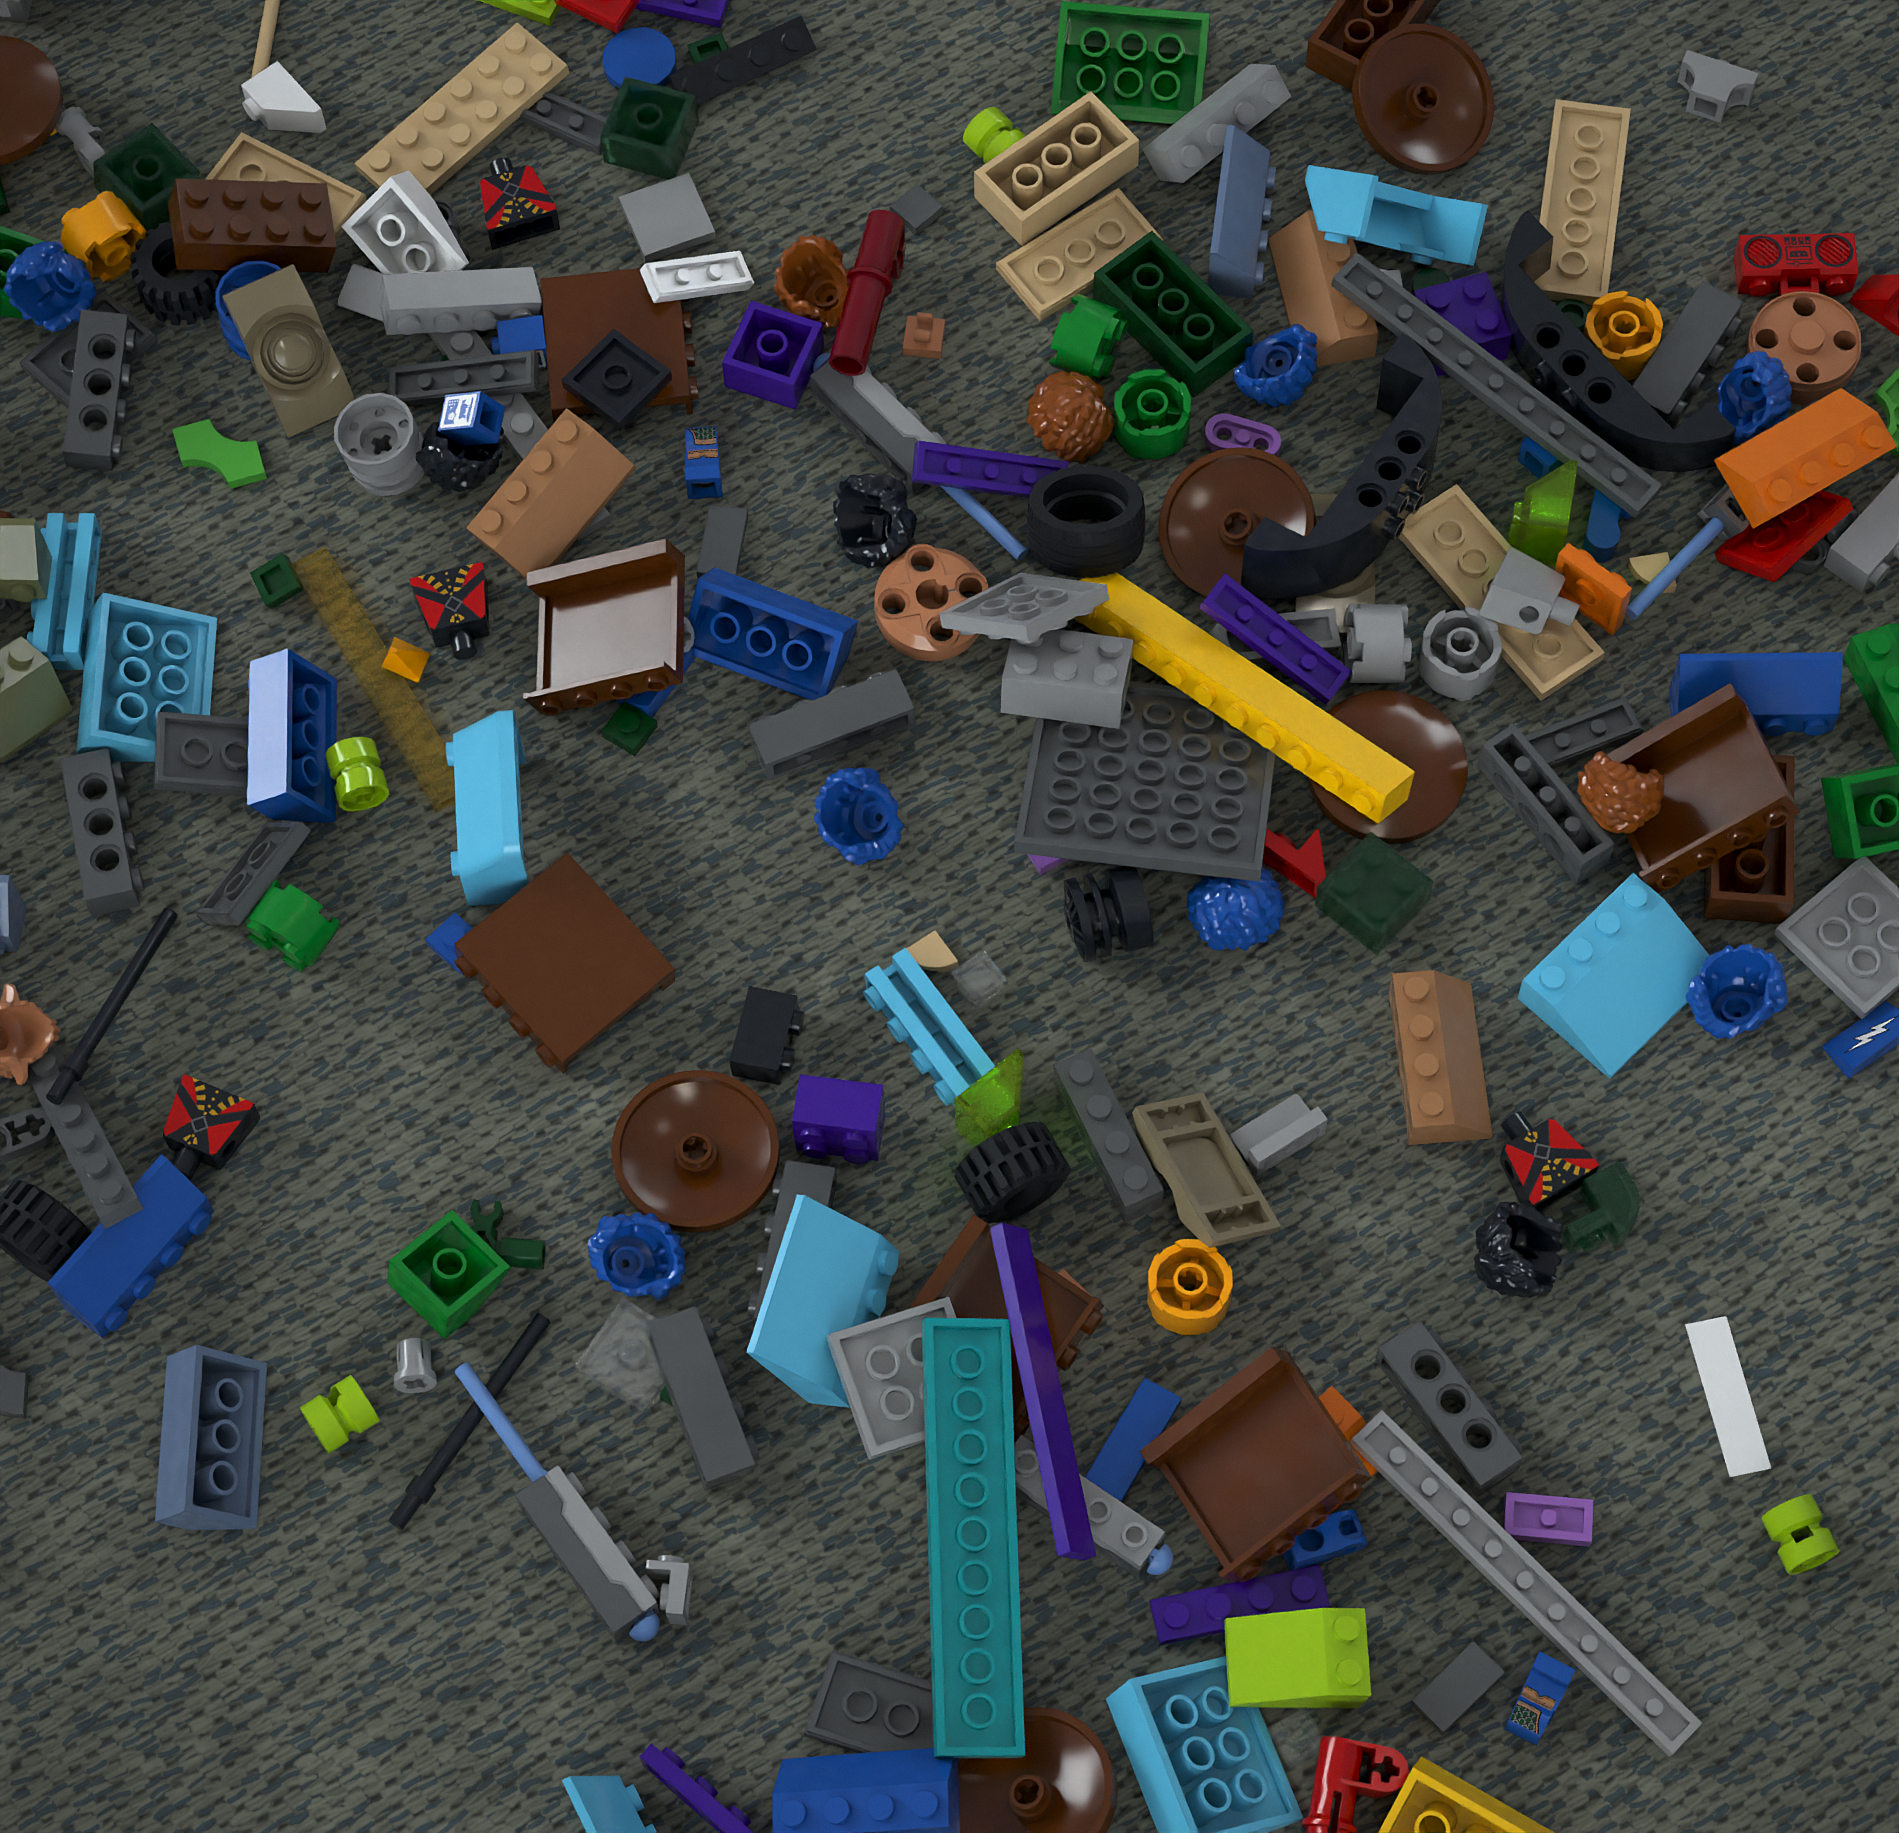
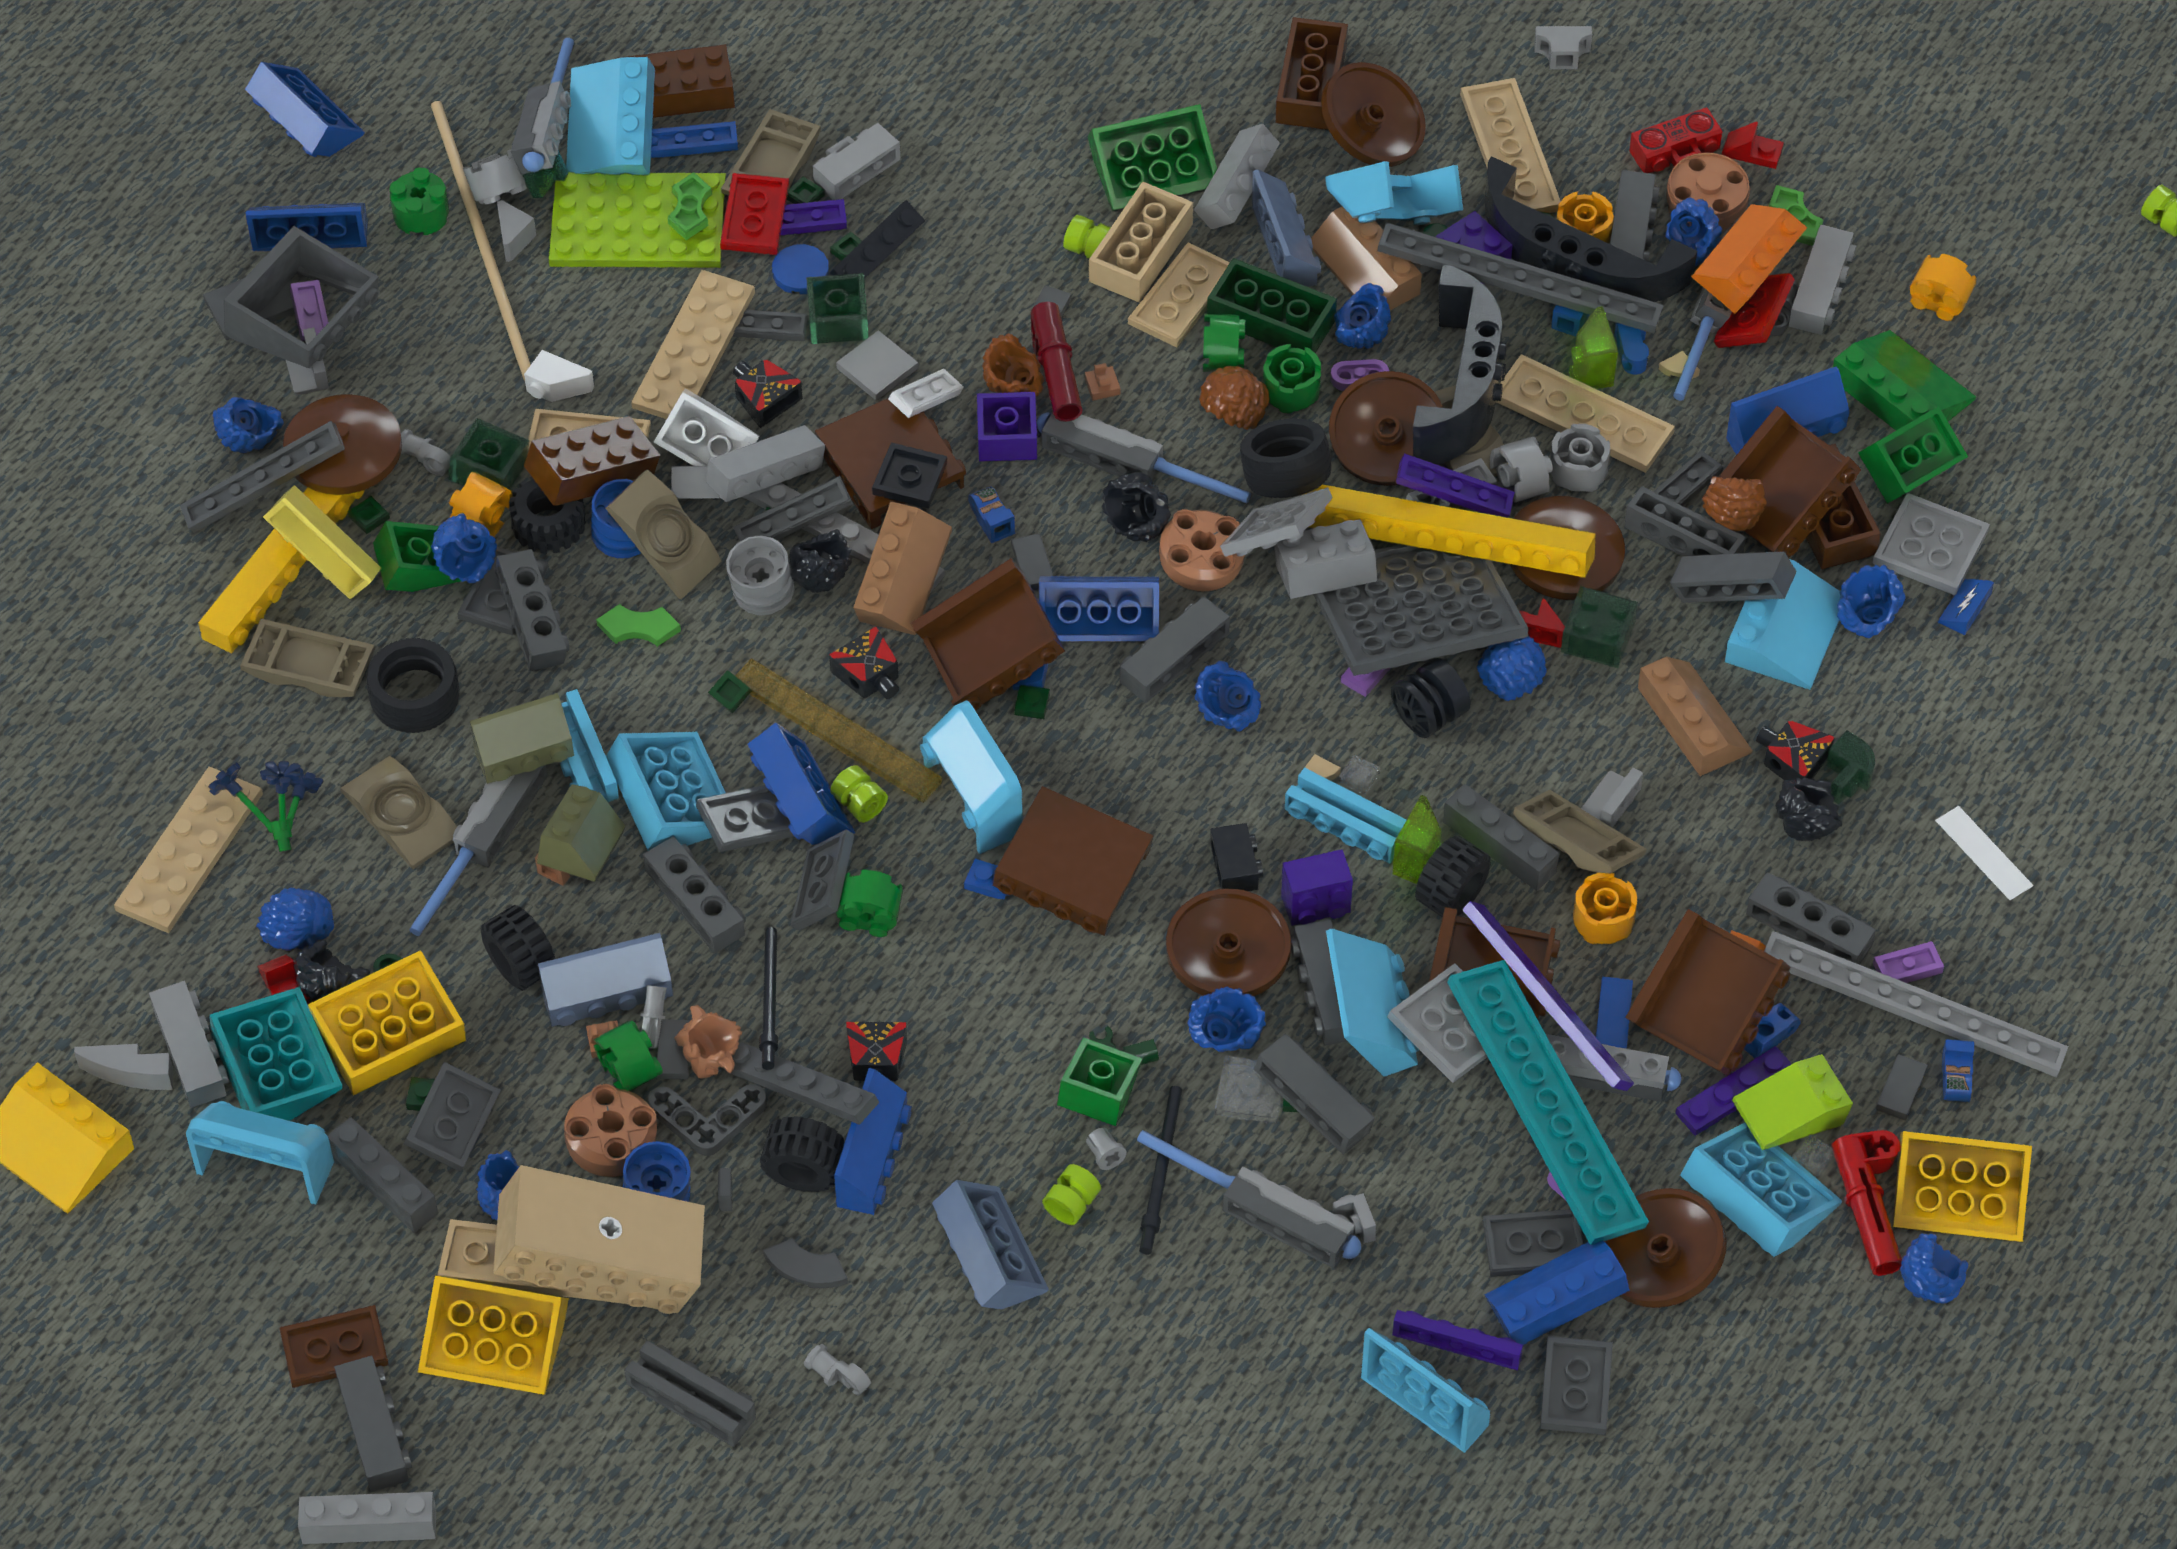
camera: 25 degrees left, 10 degrees down
(406, 659) = (850, 711): light orange slope -> none
(471, 418) = (821, 533): blue brick -> none
(521, 335) = (818, 473): blue brick -> none
(980, 469) = (1194, 450): dark purple plate -> none
(1527, 594) = (1609, 403): light grey torso -> none
(1571, 894) = (1733, 577): none -> dark grey brick
(1600, 593) = (1647, 387): orange plate -> none
(1794, 1520) = (2075, 914): lime wheel -> none

